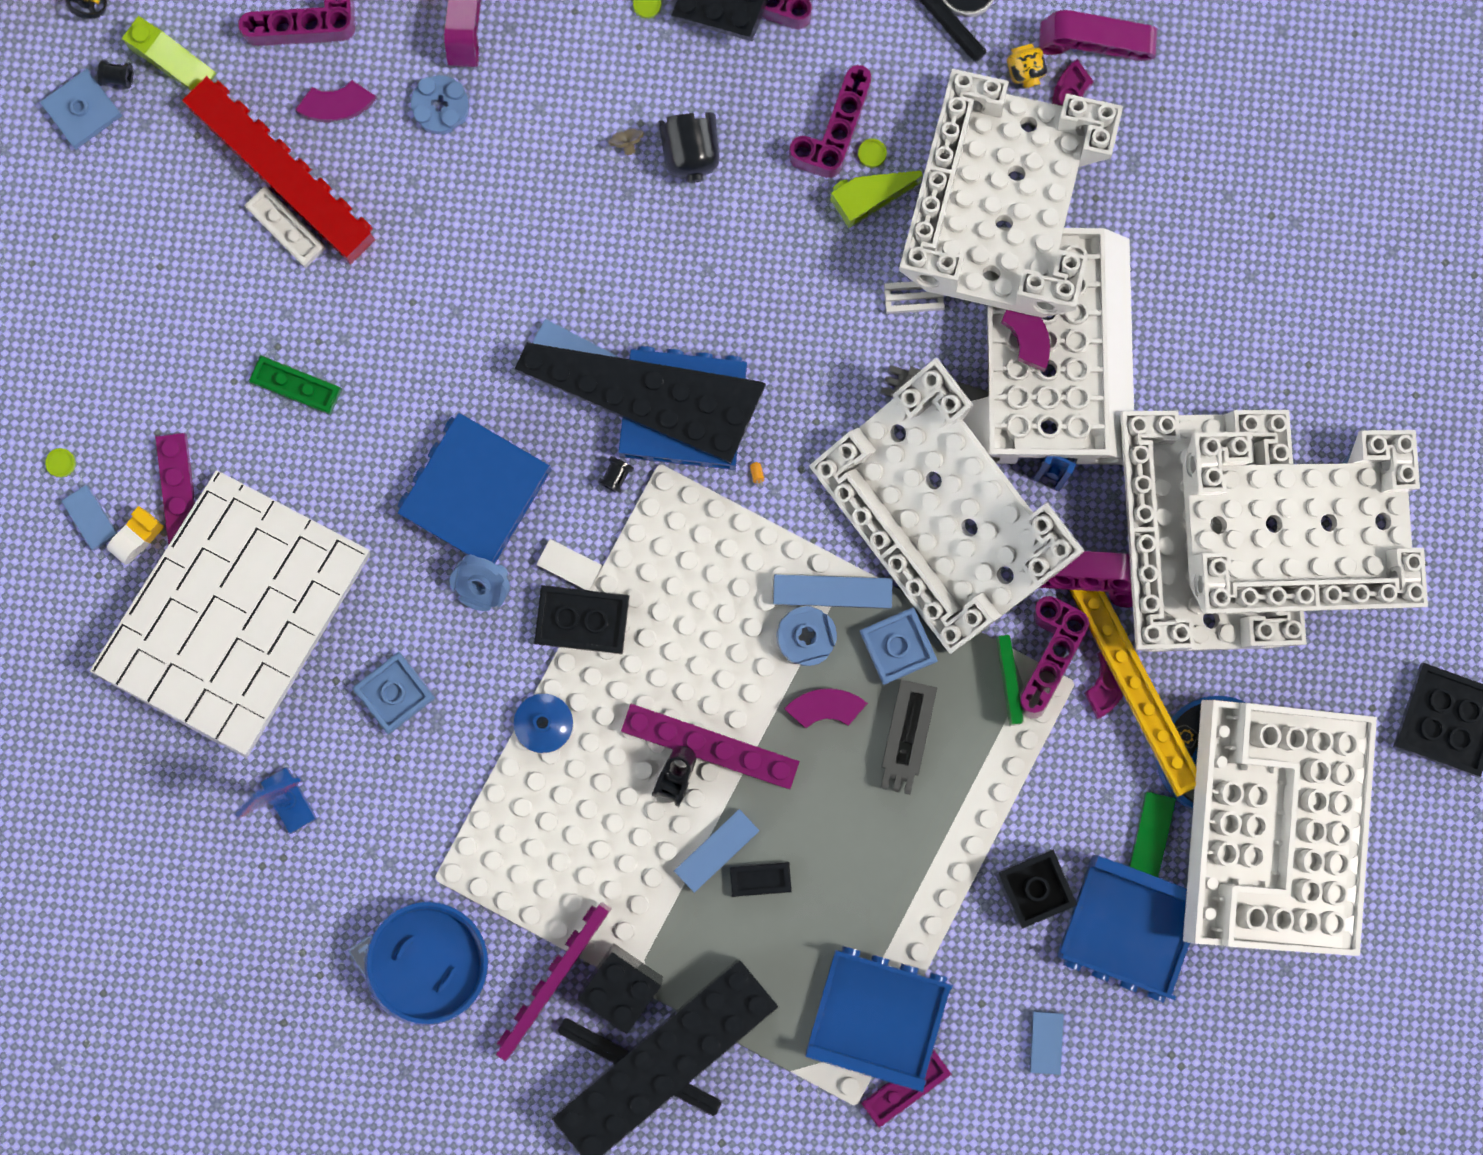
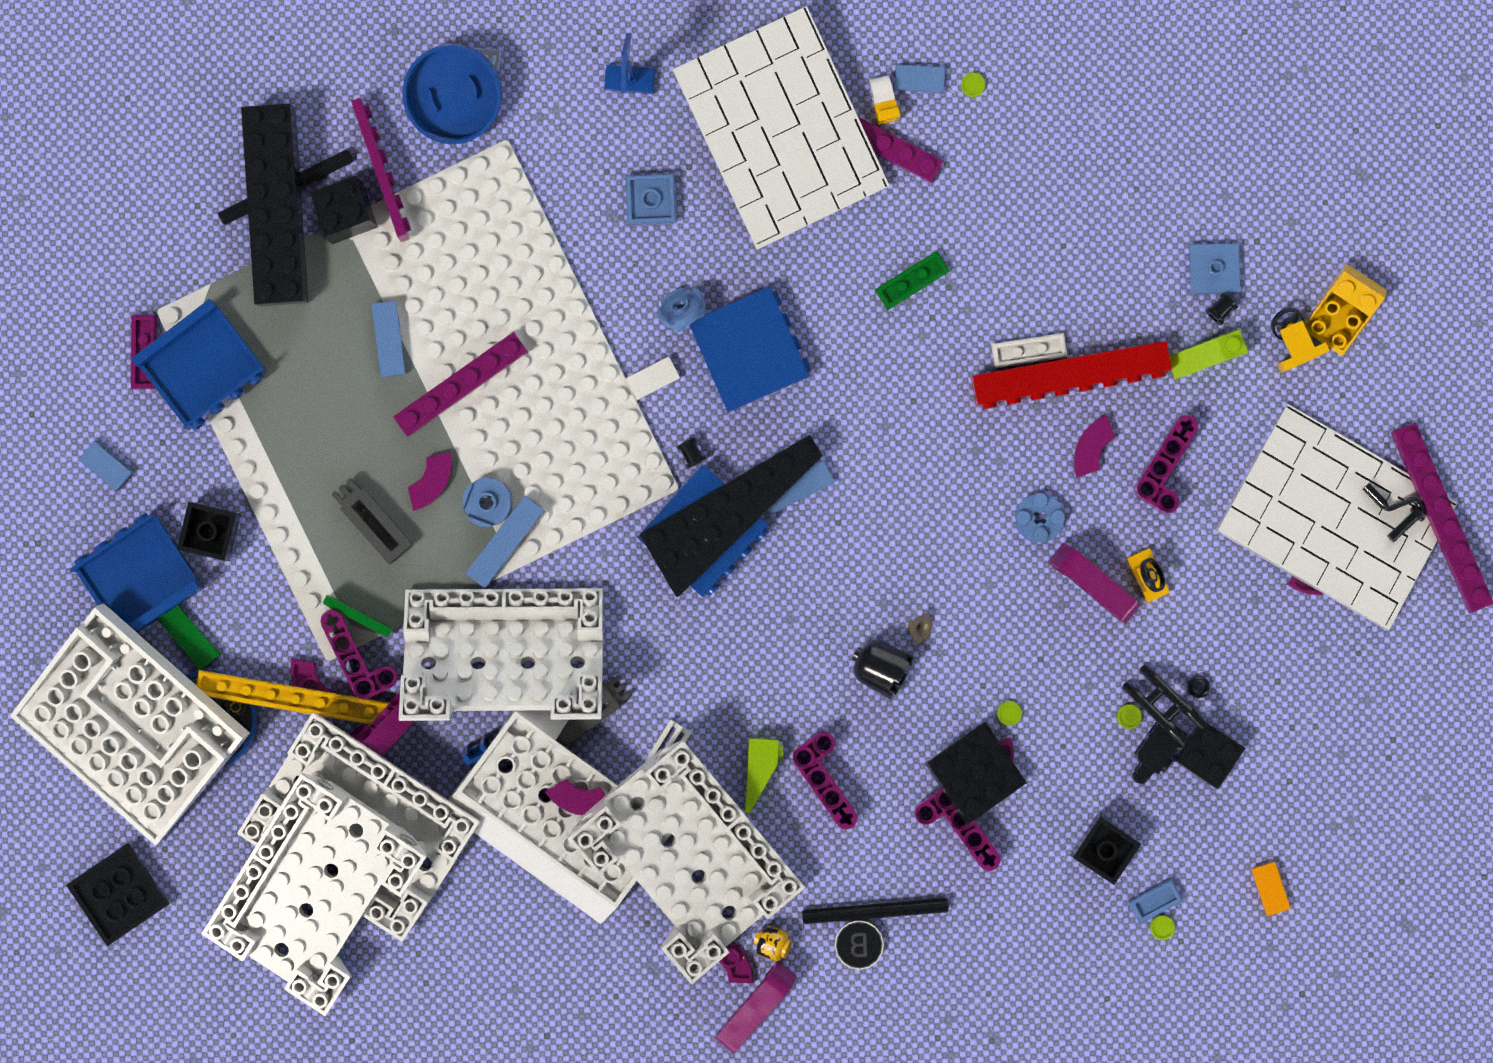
camera: 125 degrees right, 5 degrees up
(554, 734) = (557, 297): blue dish -> none
(581, 619) = (608, 359): black tile -> none
(674, 779) = (455, 344): black piece -> none
(757, 473) = (624, 550): light orange piece -> none
(760, 879) = (349, 354): black tile -> none
(872, 153) = (790, 792): lime piece -> none
(898, 646) = (436, 559): medium blue plate -> none

